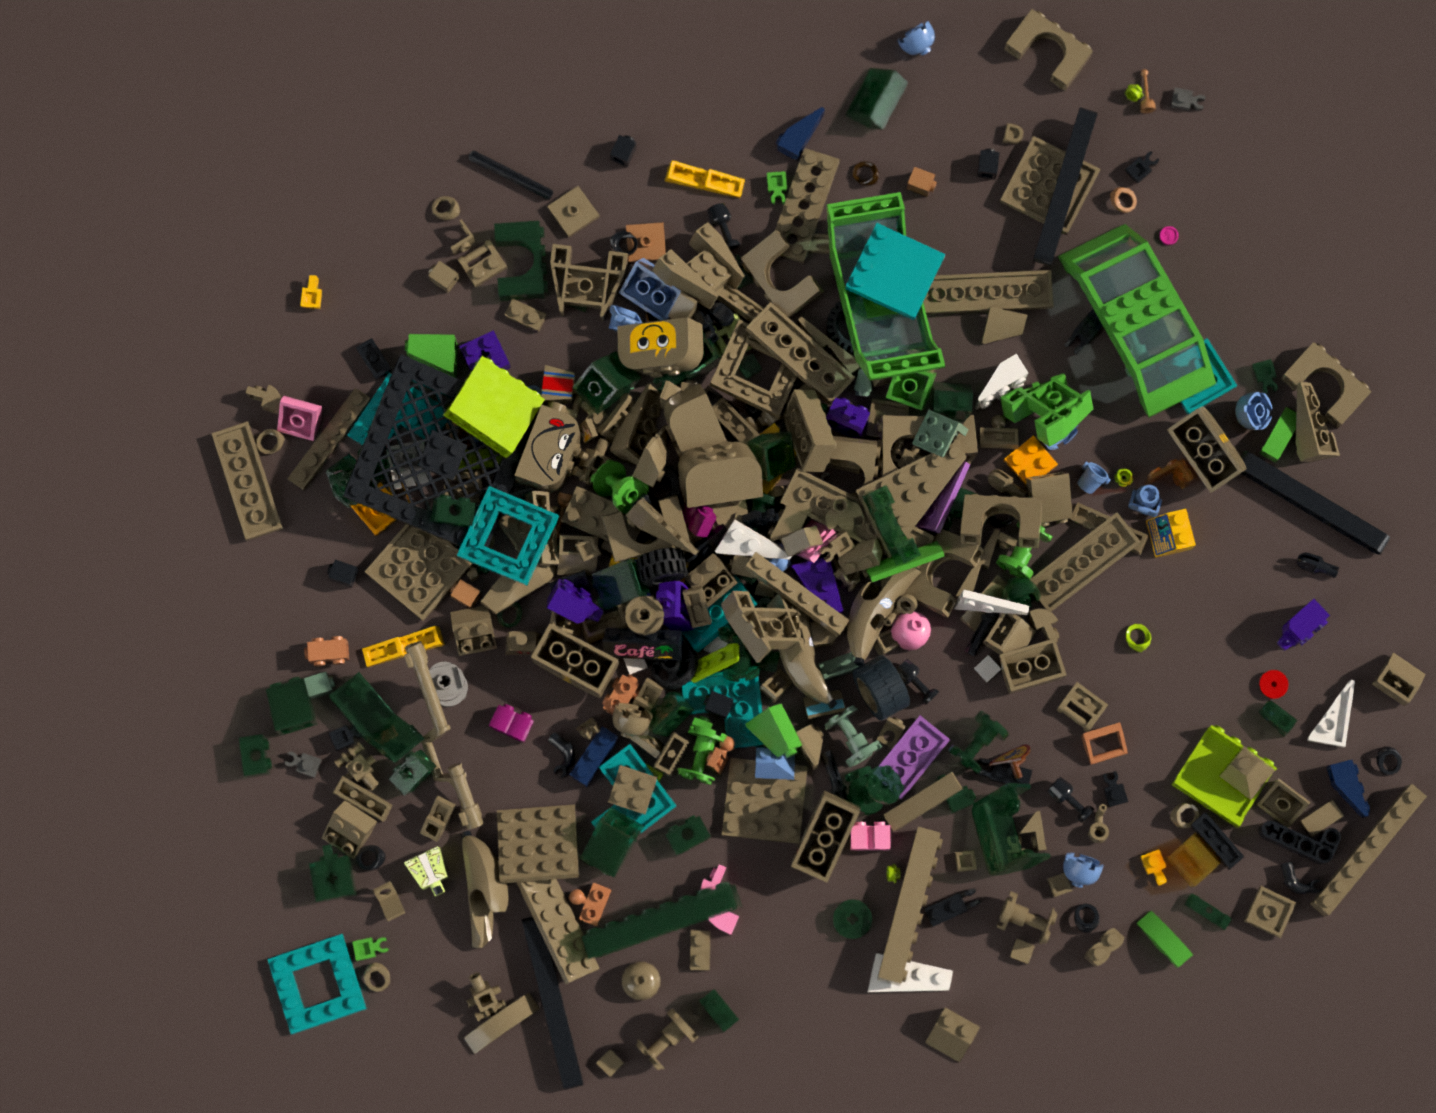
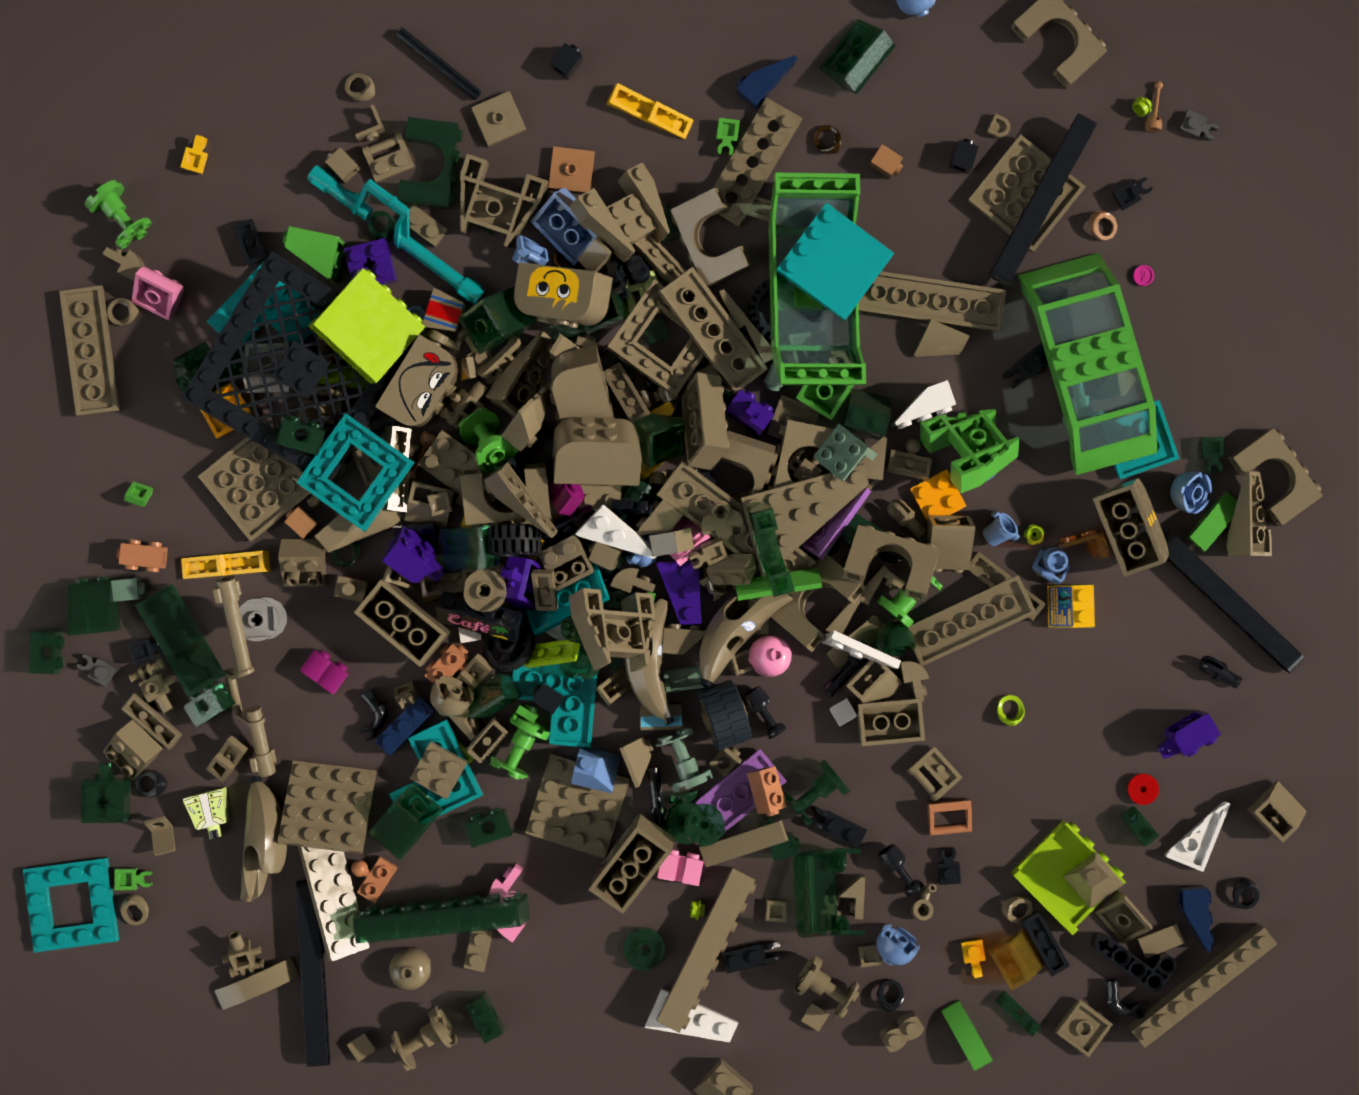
camera: 10 degrees right, 10 degrees up
(246, 349) = (110, 203): none -> bright green piece
(313, 598) = (138, 494): none -> bright green plate
(329, 439) = (187, 321): dark tan plate -> none
(342, 573) = (174, 473): black brick -> none
(462, 306) = (356, 202): none -> teal piece
(495, 326) = (390, 227): none -> clear green piece
(615, 239) = (537, 162): black piece -> none
(717, 759) = (536, 755): nougat plate -> none
(720, 216) = (657, 157): black piece -> none
(775, 731) = (601, 742): bright green slope -> none
(796, 594) = (653, 598): dark tan plate -> none
(902, 608) = (769, 630): dark tan plate -> none
(933, 748) = (766, 790): none -> nougat brick
(1015, 758) = (850, 814): shield -> none

